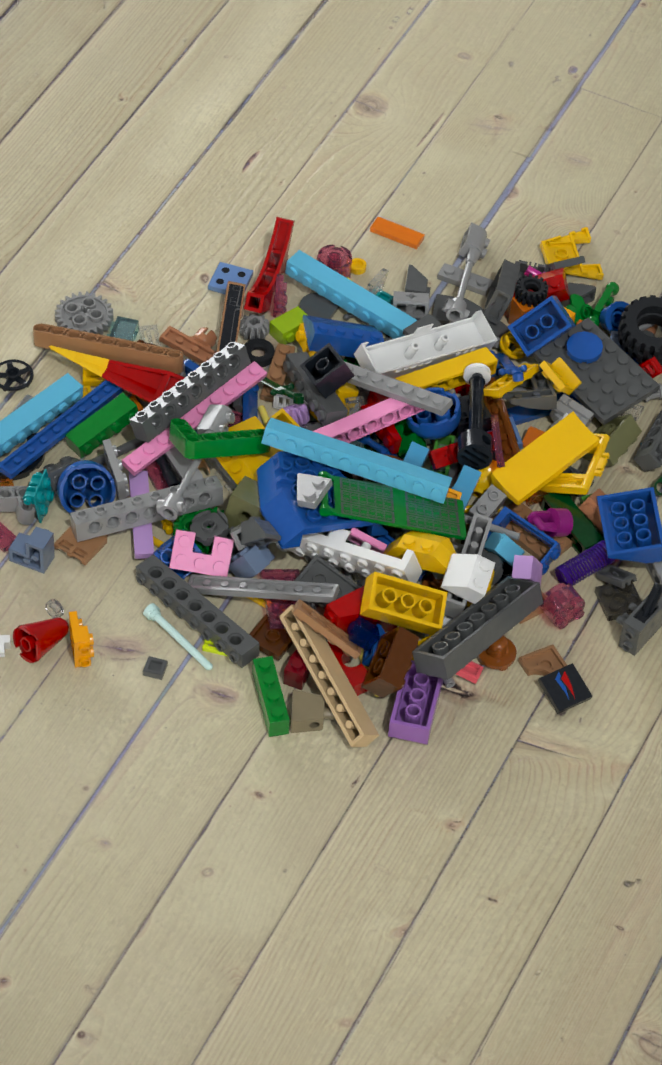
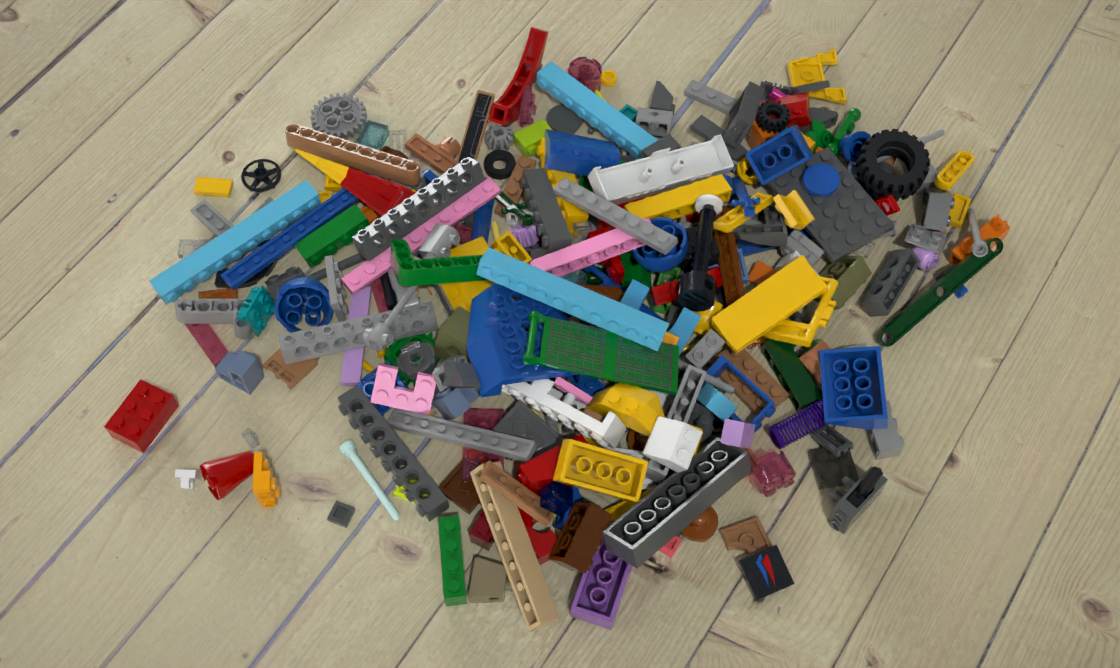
camera: 10 degrees right, 10 degrees up
(228, 272) = (486, 82): medium blue tile -> none
(311, 490) = (518, 334): light grey wing -> none
(327, 370) = (555, 195): black brick -> none
(378, 282) = (624, 97): clear plate -> none
(397, 232) = (650, 46): orange tile -> none
(437, 311) = (682, 132): dark grey tile -> none
(472, 248) = (720, 67): light grey bar -> none
(497, 441) = (721, 291): clear pink tile -> none
(554, 521) = (770, 375): magenta piece -> none

